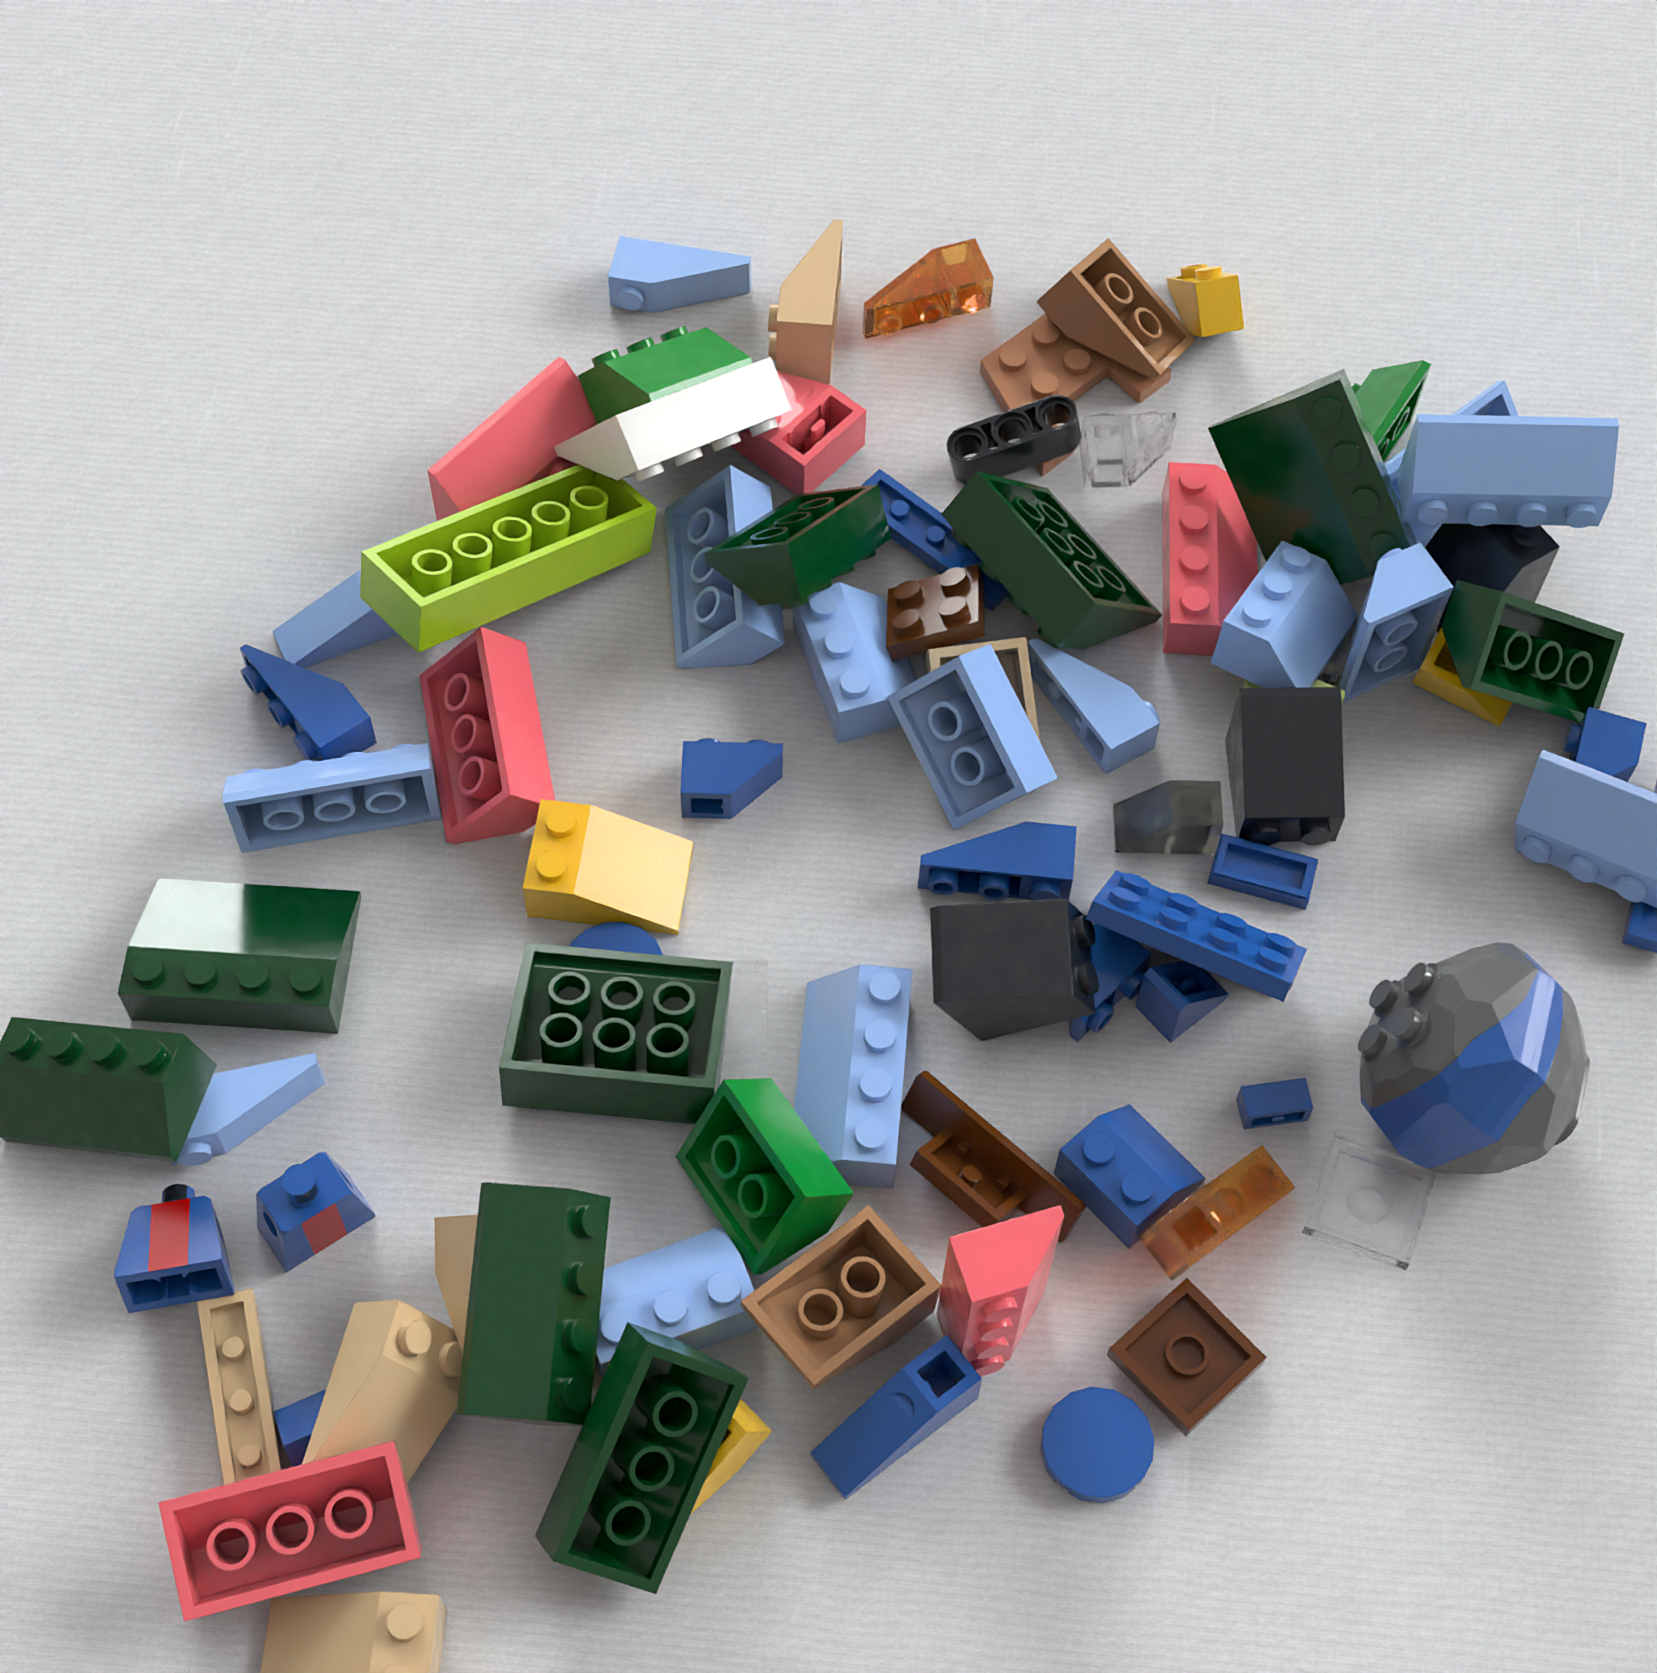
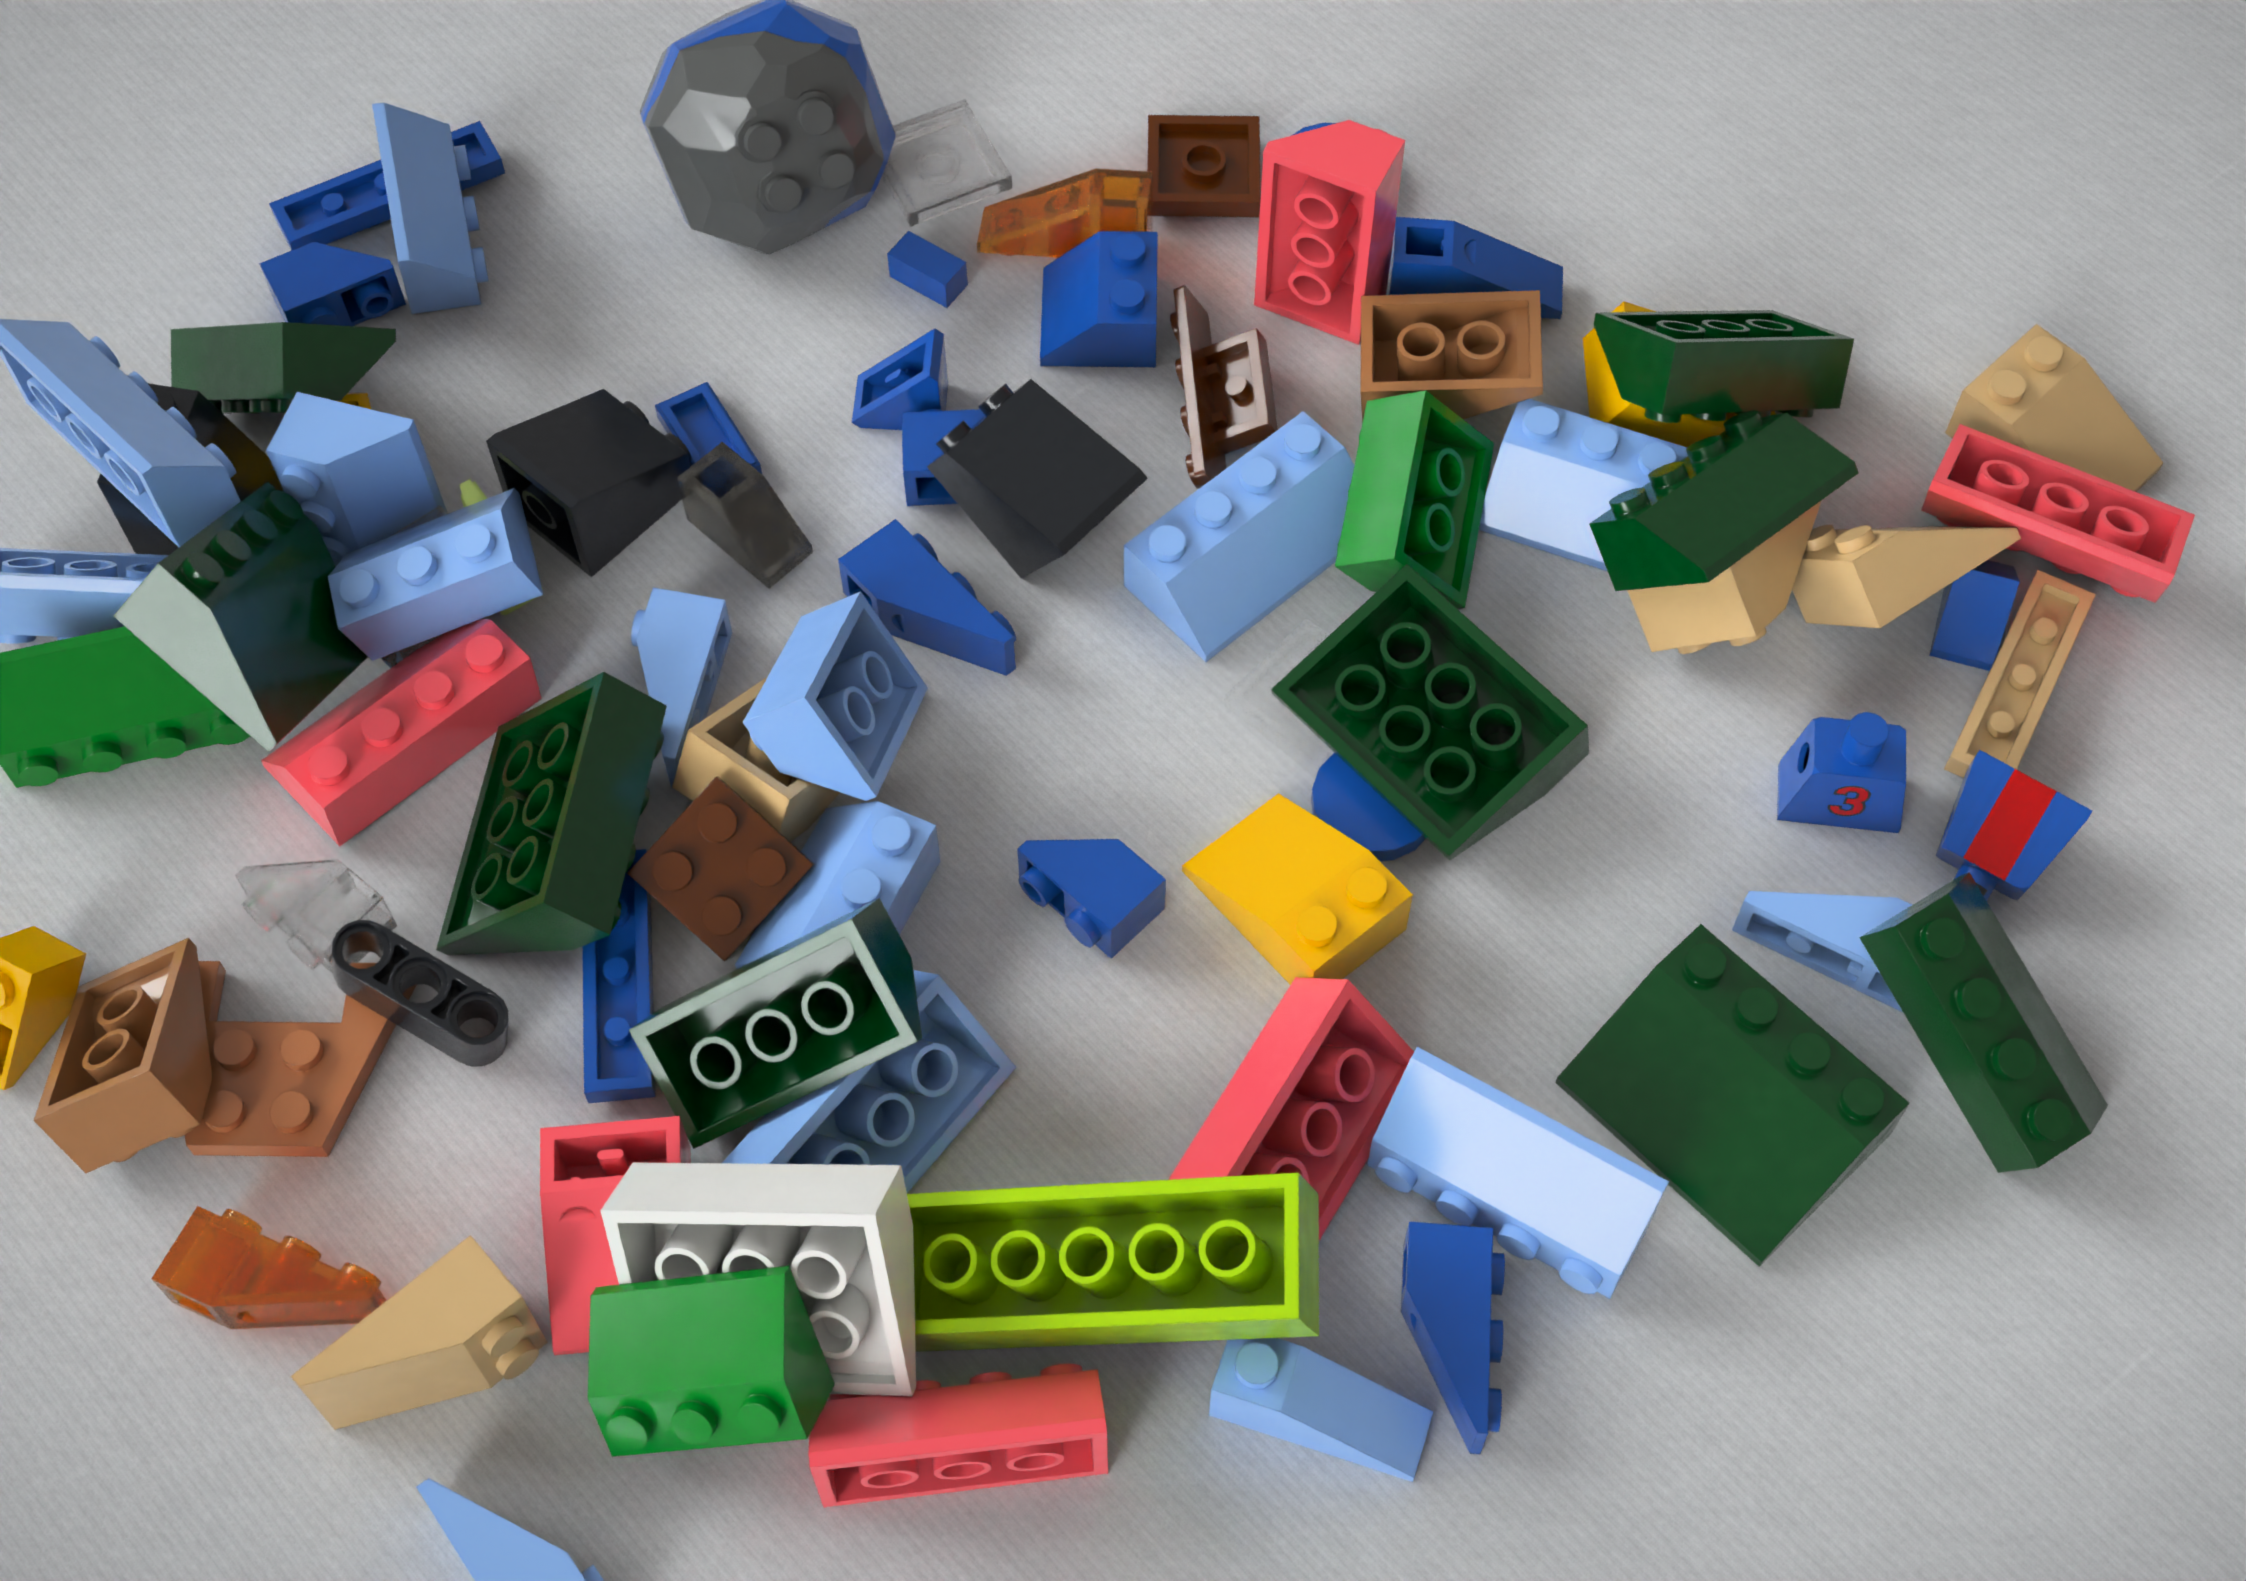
camera: 135 degrees left, 0 degrees up
(1197, 934) = (854, 385): blue bracket -> none

